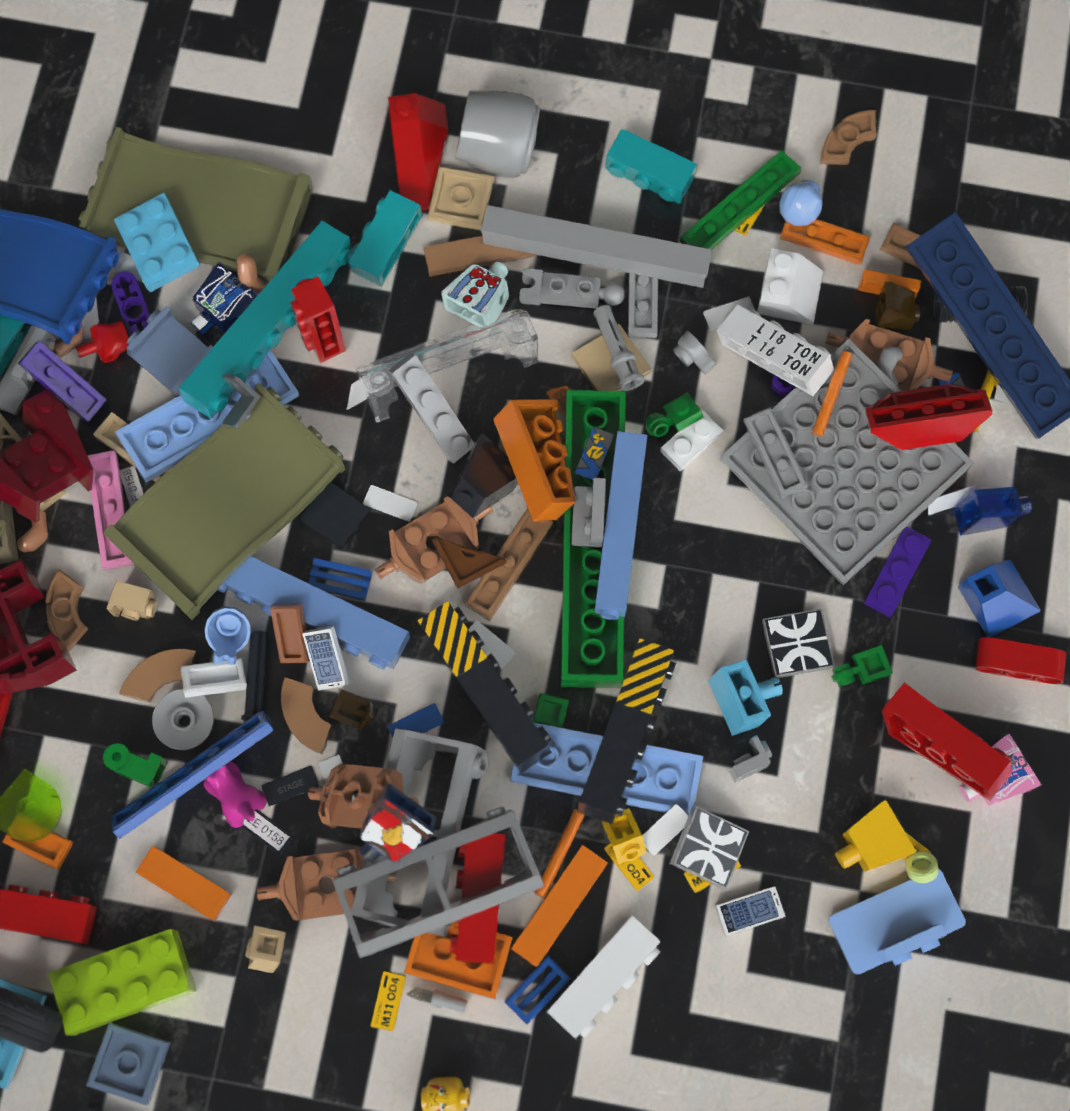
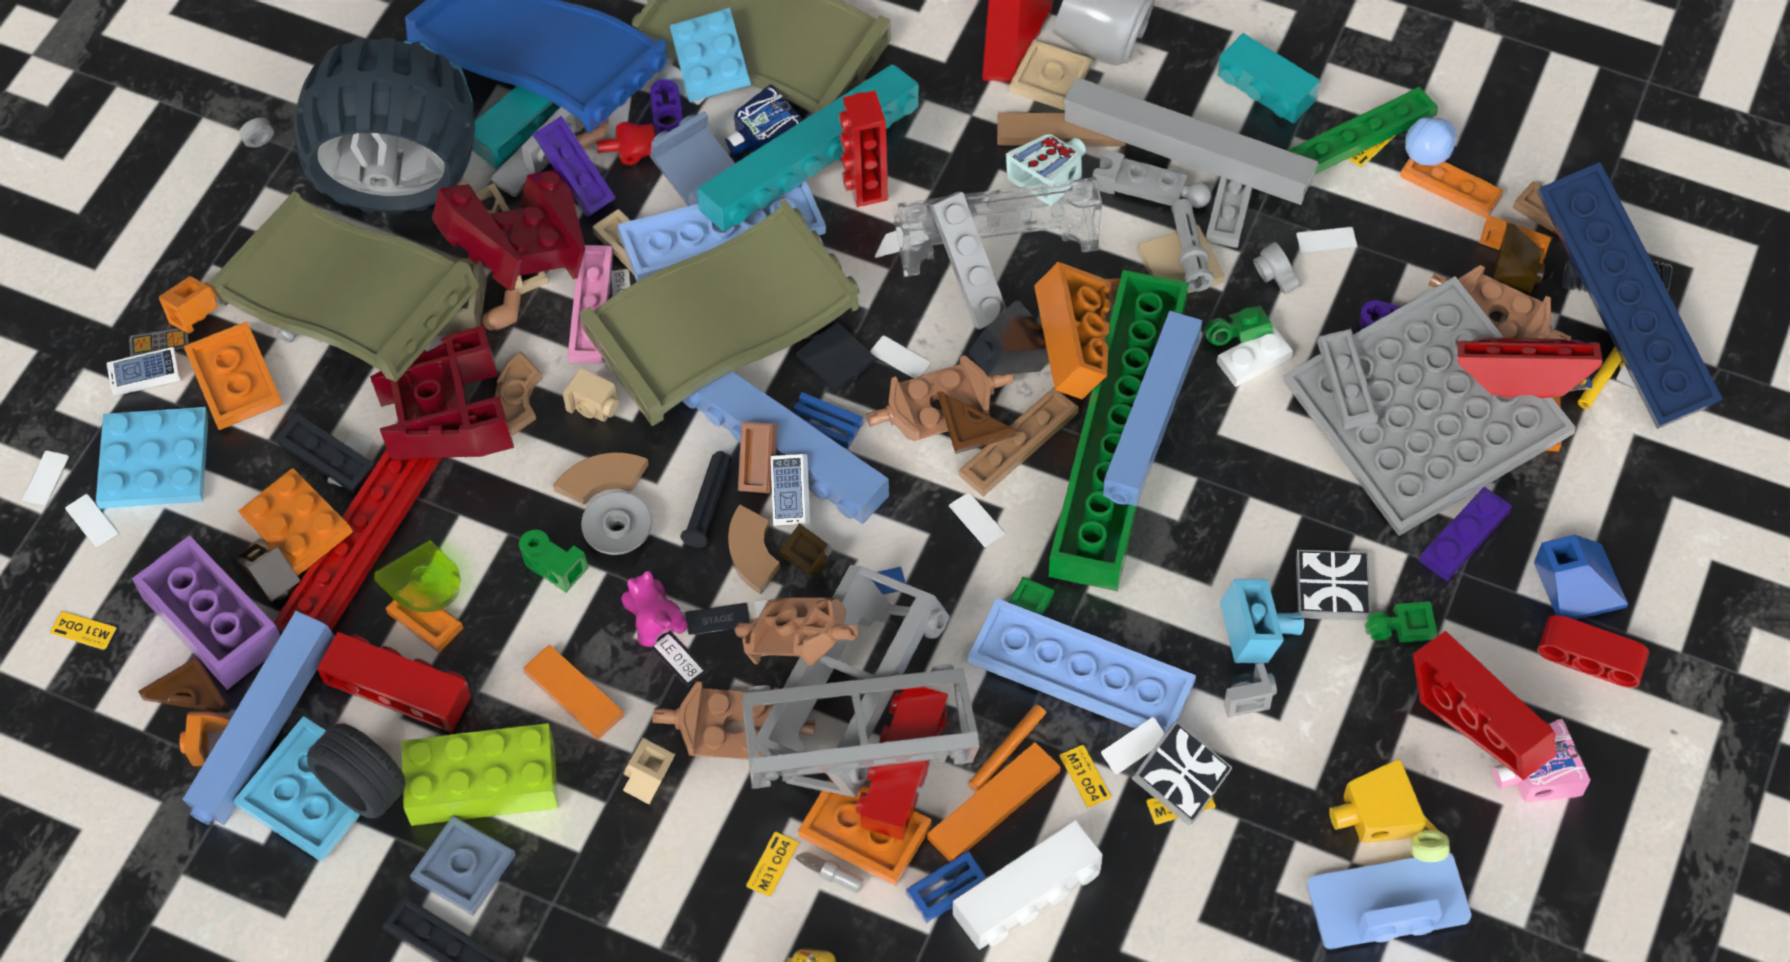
camera: 15 degrees right, 15 degrees down
(191, 774) = (611, 576): blue tile -> none
(212, 678) = (660, 488): white tile -> none
(227, 633) = (687, 444): light blue piece -> none
(244, 406) = (770, 208): dark grey bracket -> none
(248, 273) = (800, 98): nougat arm -> none
(385, 238) = (957, 95): teal brick -> none
(394, 826) = (824, 646): torso -> none
(485, 687) = (962, 554): black brick -> none
(589, 514) = (1119, 390): light grey bracket -> none
(594, 453) = (1139, 337): sticker -> none
(625, 732) = (1111, 627): black brick -> none
(625, 837) = (1085, 743): yellow bracket -> none
(750, 911) = (1215, 854): tile -> none
(776, 349) = (1369, 274): white brick -> none
(790, 287) = (1400, 222): white slope -> none
(832, 393) = (1424, 328): orange bar -> none
(848, 135) = (1498, 89): medium nougat tile -> none
(888, 360) = (1498, 309): light grey arm -> none
(950, 500) = (1545, 470): white sticker -> none
(990, 510) = (1586, 484): clear blue torso -> none

